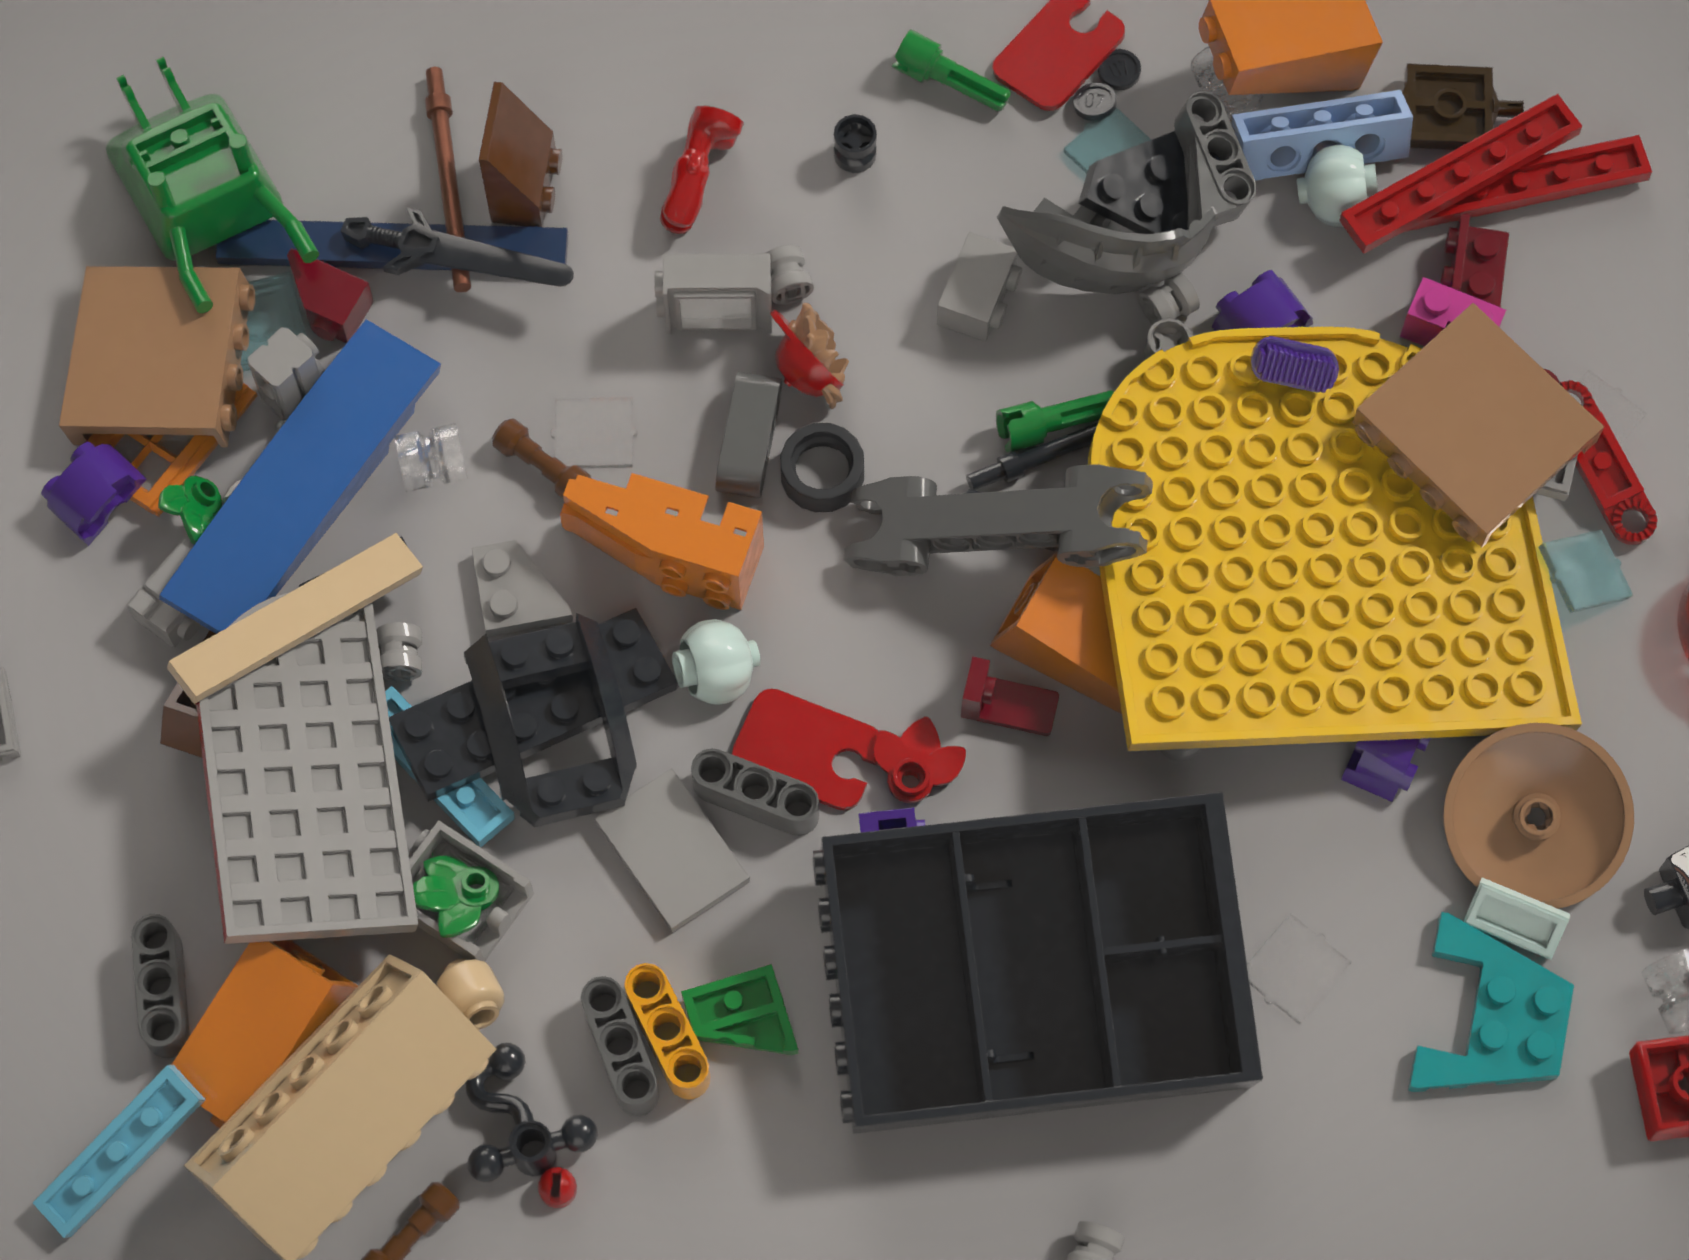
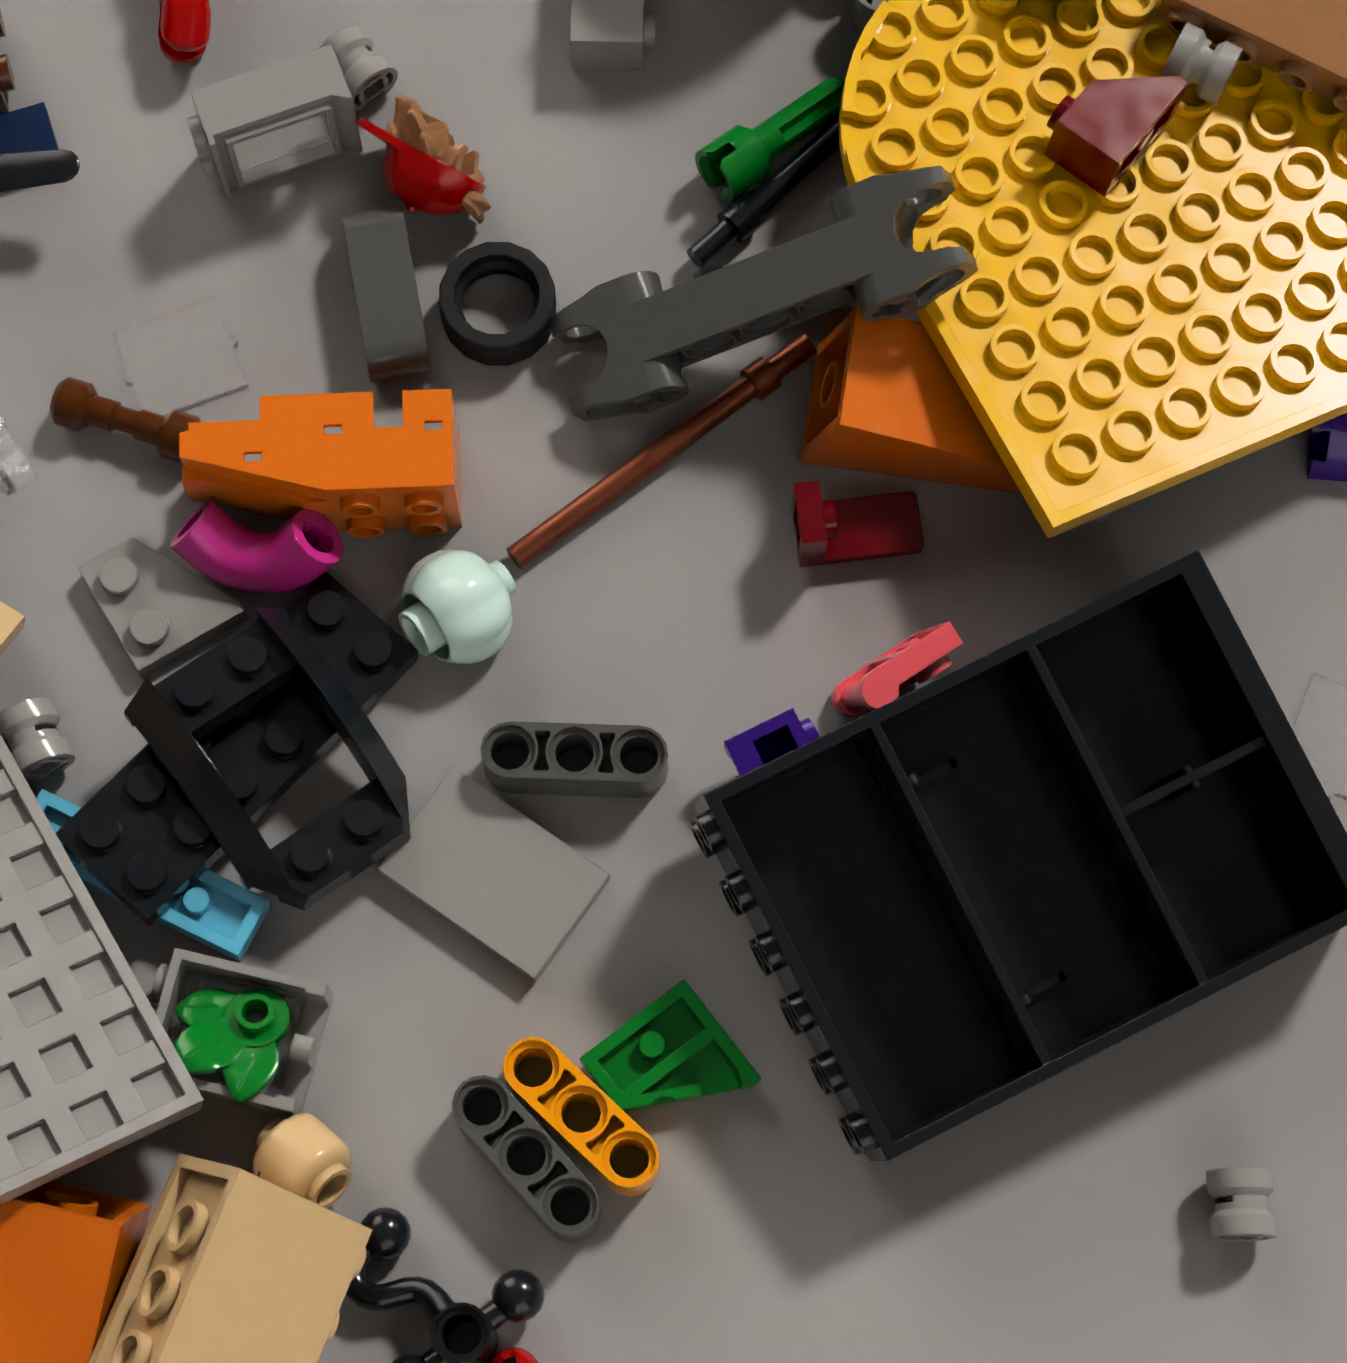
camera: 20 degrees left, 5 degrees up
(593, 584) = (257, 559): none -> dark pink cylinder
(803, 742) = (608, 672): red piece -> none
(918, 755) = (766, 636): red plate -> none
(981, 580) = (756, 381): none -> copper bar
(1004, 803) = (909, 661): none -> coral plate
(1284, 487) = (1111, 126): none -> dark red slope
(1363, 462) = (1201, 63): none -> light grey wheel

